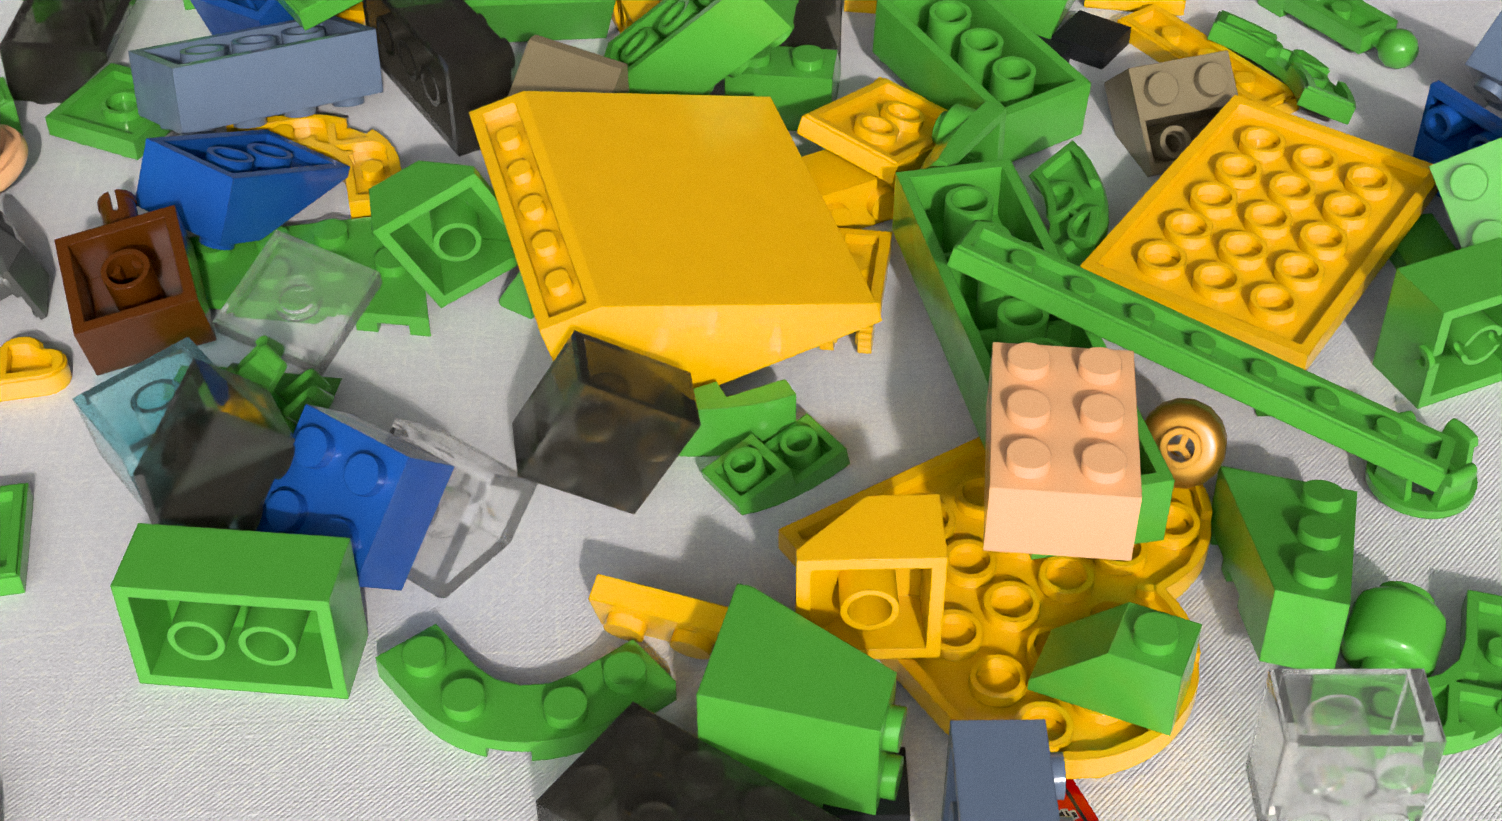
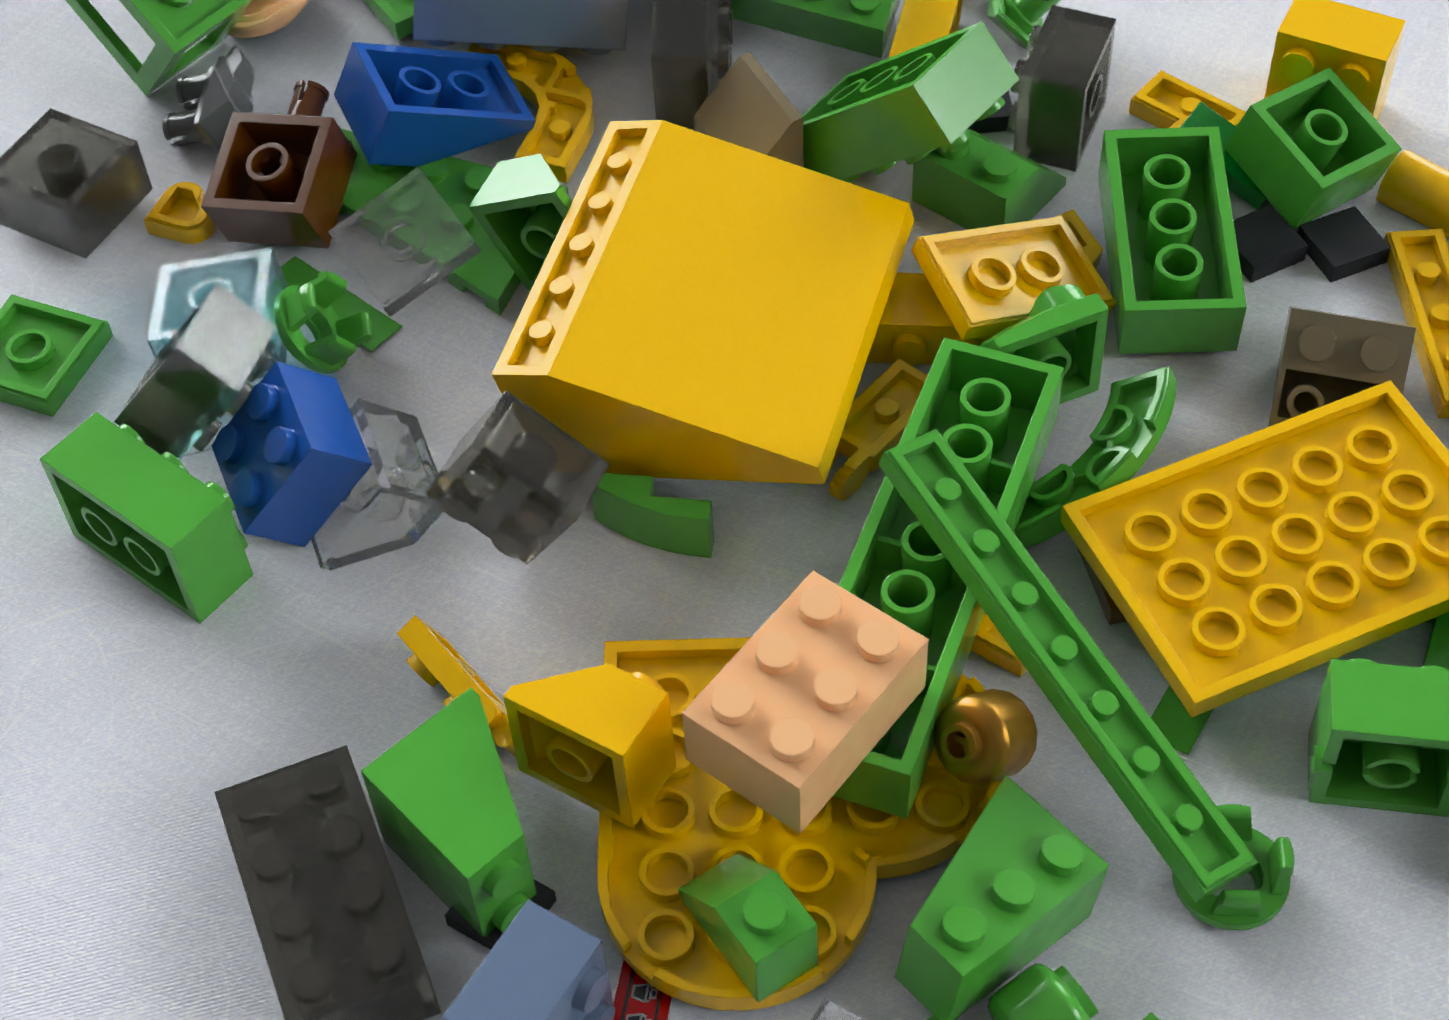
camera: 35 degrees right, 10 degrees up
(546, 719) = (299, 709): bright green plate -> none
(768, 474) = (650, 581): bright green slope -> none

